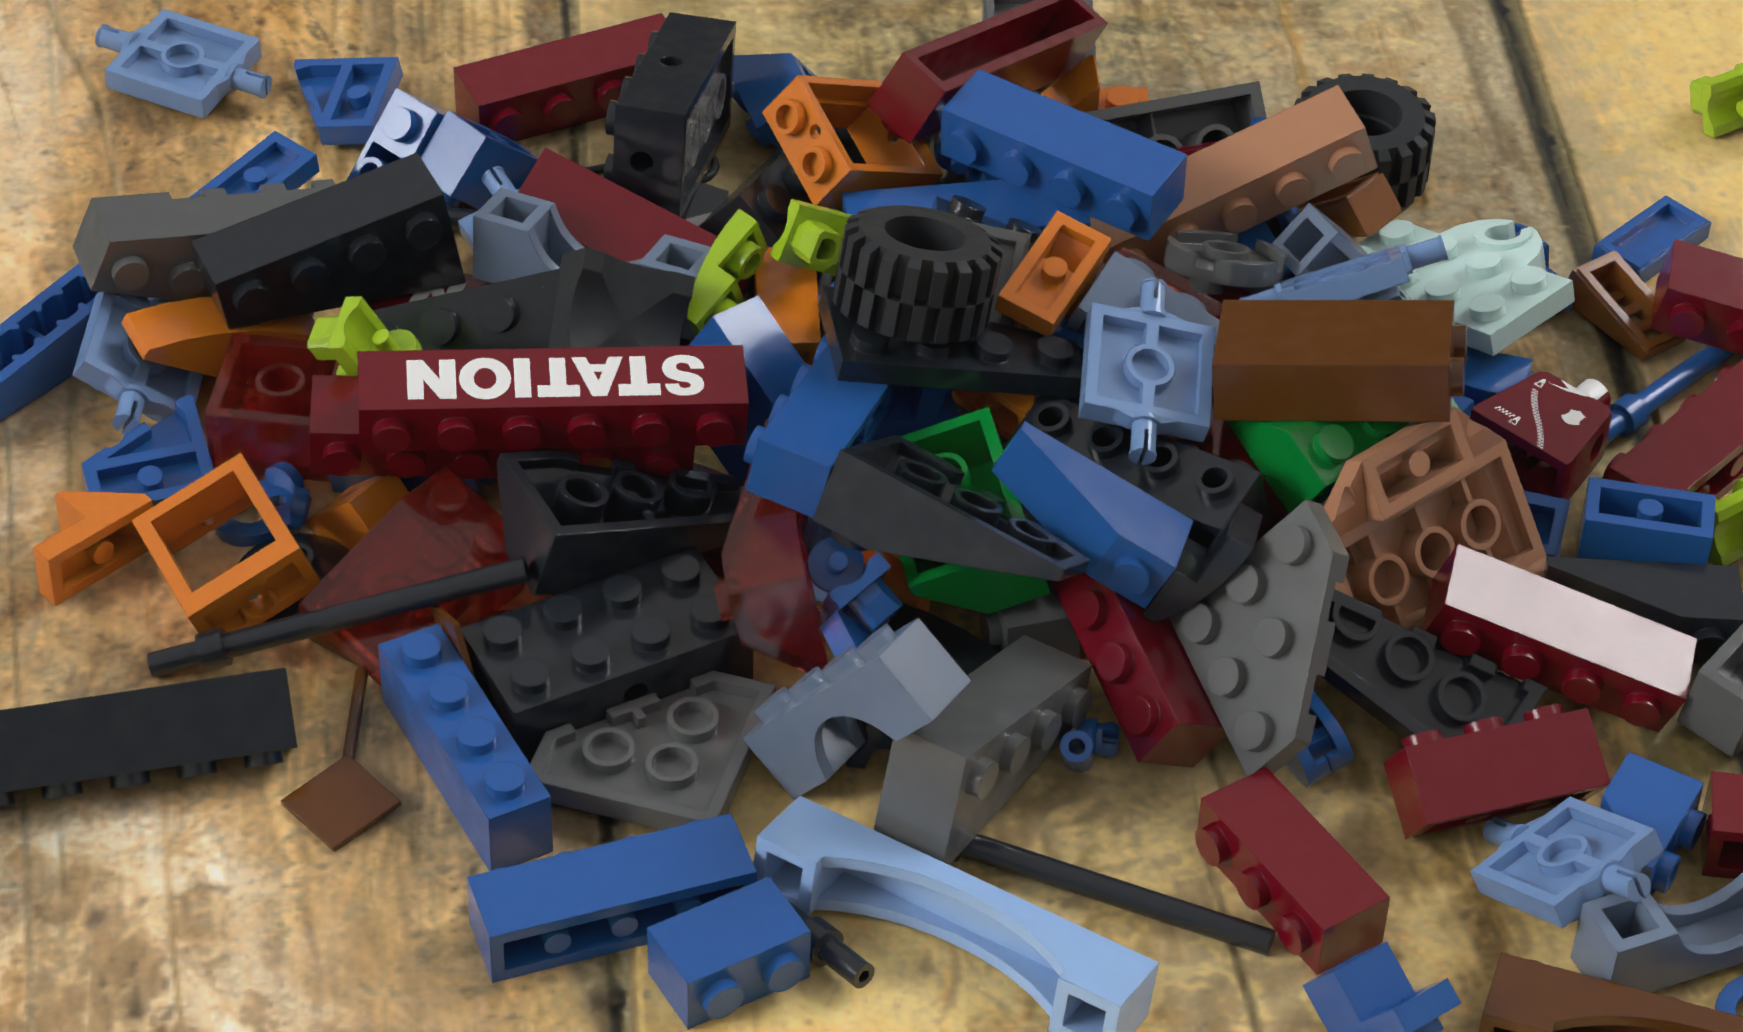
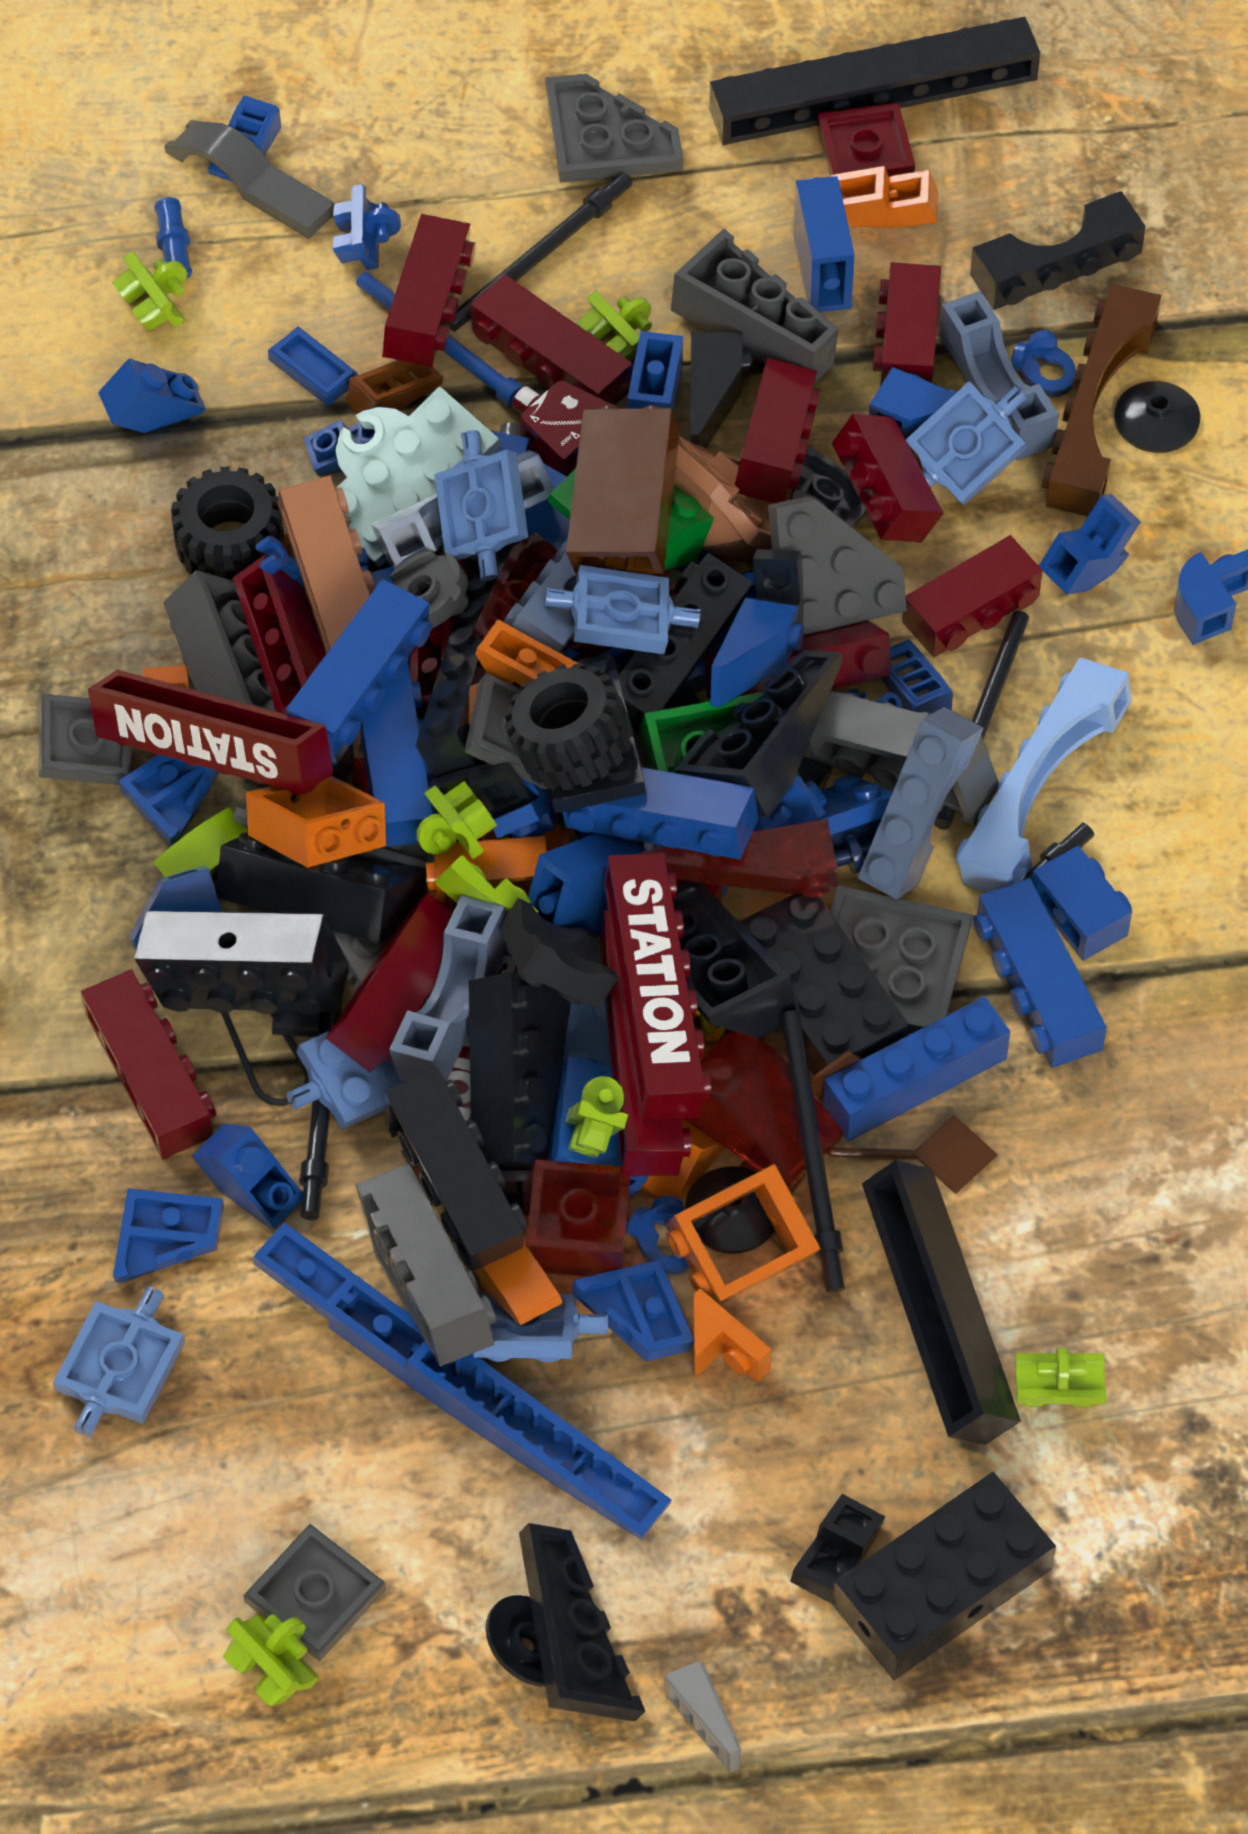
camera: 90 degrees left, 15 degrees up
(464, 152) = (267, 1113): blue slope -> none
(1112, 827) = (939, 692): none -> blue slope
(1568, 91) = (149, 397): none -> blue slope

